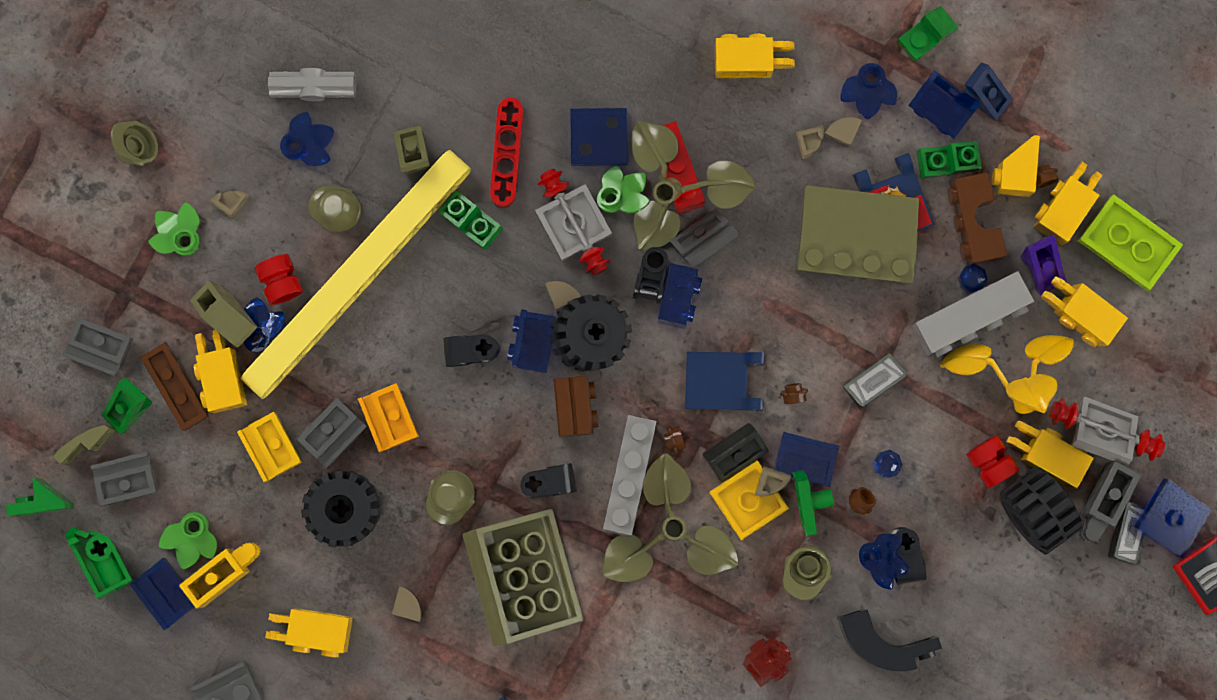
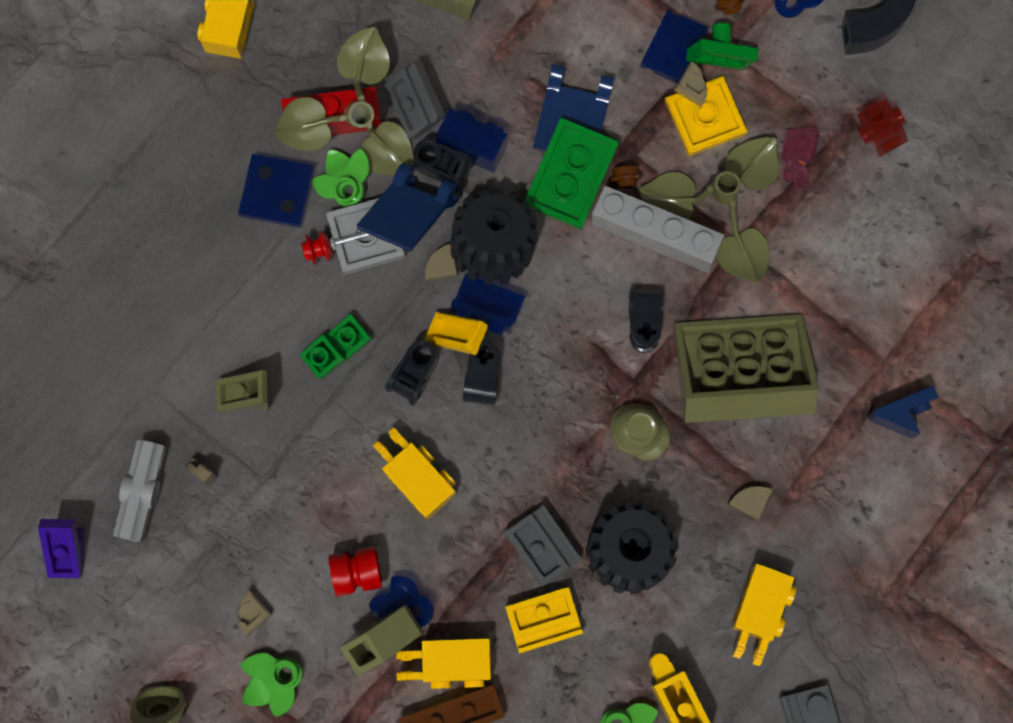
camera: 80 degrees left, 5 degrees down
(252, 33) = (62, 547): none -> dark purple slope
(311, 140) = (203, 506): clear blue plate -> none
(335, 208) = (287, 495): olive hat -> none
(339, 130) = (201, 471): none -> dark tan tile
(355, 274) = (370, 486): light yellow beam -> none
(370, 312) = (416, 477): none -> yellow hinge
(388, 417) = (538, 479): light orange plate -> none
(455, 290) = (412, 373): none -> black piece
(499, 319) = (456, 333): none -> yellow tile
(506, 152) = (271, 288): red beam -> none
(574, 406) = (568, 273): reddish brown brick -> none
(597, 252) = (406, 213): none -> dark blue flag
(666, 390) = (571, 173): none -> green plate
(730, 589) = (797, 151): none -> clear pink plate
(735, 452) = (651, 119): pearl dark grey slope -> none
(794, 393) = (602, 45): reddish brown plate -> none
(806, 572) = (795, 69): olive hat -> none

